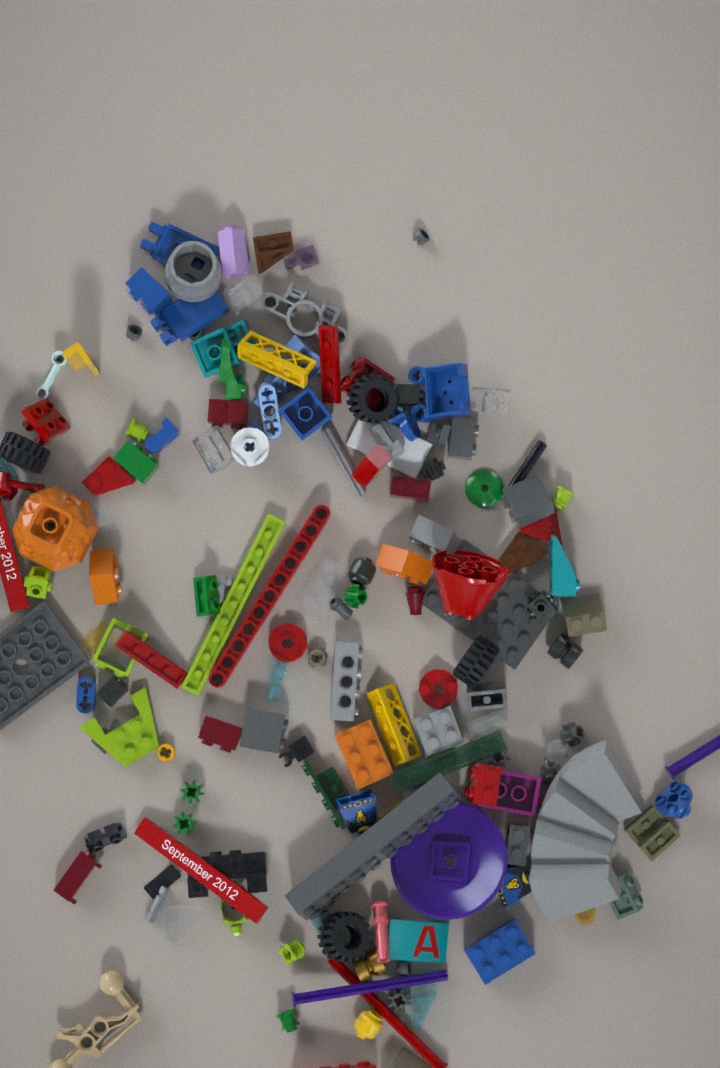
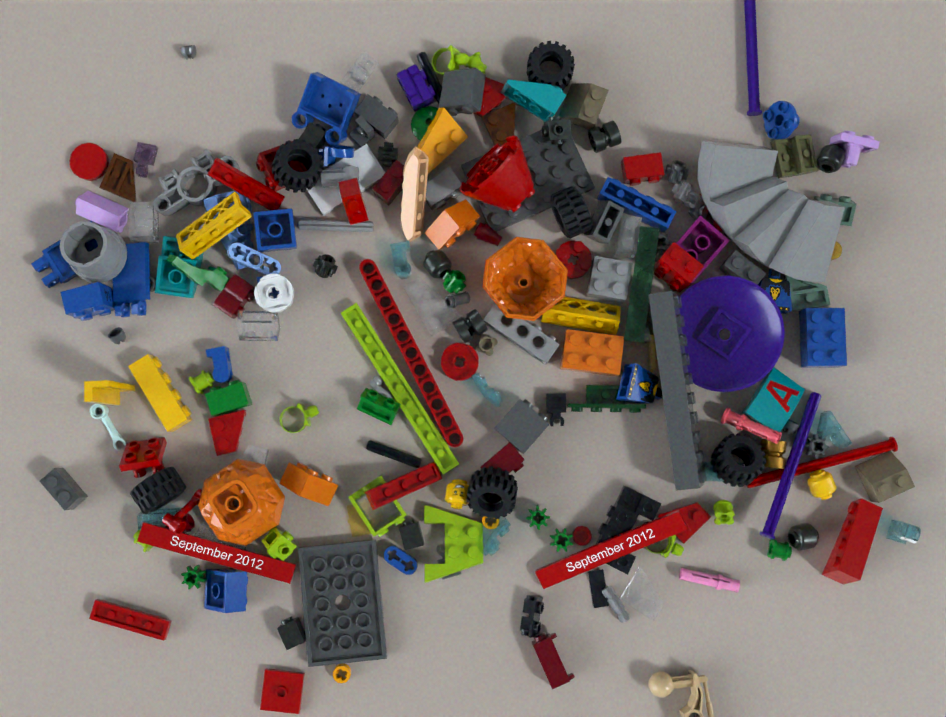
camera: 60 degrees left, 0 degrees up
(106, 401) = (160, 392): none -> yellow brick
(148, 765) = (492, 543): none -> clear light blue slope
(168, 540) = (311, 411): none -> lime piece
(171, 710) = (457, 493): none -> yellow head
(173, 634) = (393, 454): none -> black axle
(189, 739) = (503, 494): none -> black tyre
(199, 840) = (581, 535): none -> red tile
(229, 982) = (716, 581): none -> bright pink pin
(269, 927) = (694, 518): none -> red wing
(270, 212) = (89, 161): none -> red tile
(301, 475) = (325, 266): none -> pearl dark grey gear
(312, 1034) = (803, 536): none -> pearl dark grey head
(324, 633) = (470, 326): none -> pearl dark grey wheel
(341, 541) = (400, 260): none -> clear light blue leg
(409, 515) = (414, 194): none -> light nougat brick
(410, 653) = (530, 262): none -> orange rock
(469, 507) = (441, 138): none -> light orange wedge
(508, 456) = (415, 88): none -> dark purple brick
(519, 715) = (637, 204): none -> blue brick
(530, 916) = (807, 294): none -> sand green wing
(554, 478) = (456, 58): none -> lime piece
(557, 702) = (642, 168): none -> red brick
(612, 555) = (553, 53): none -> black tyre
(668, 865) = (830, 158): none -> pearl dark grey head
(688, 878) = (853, 146): none -> lavender plate

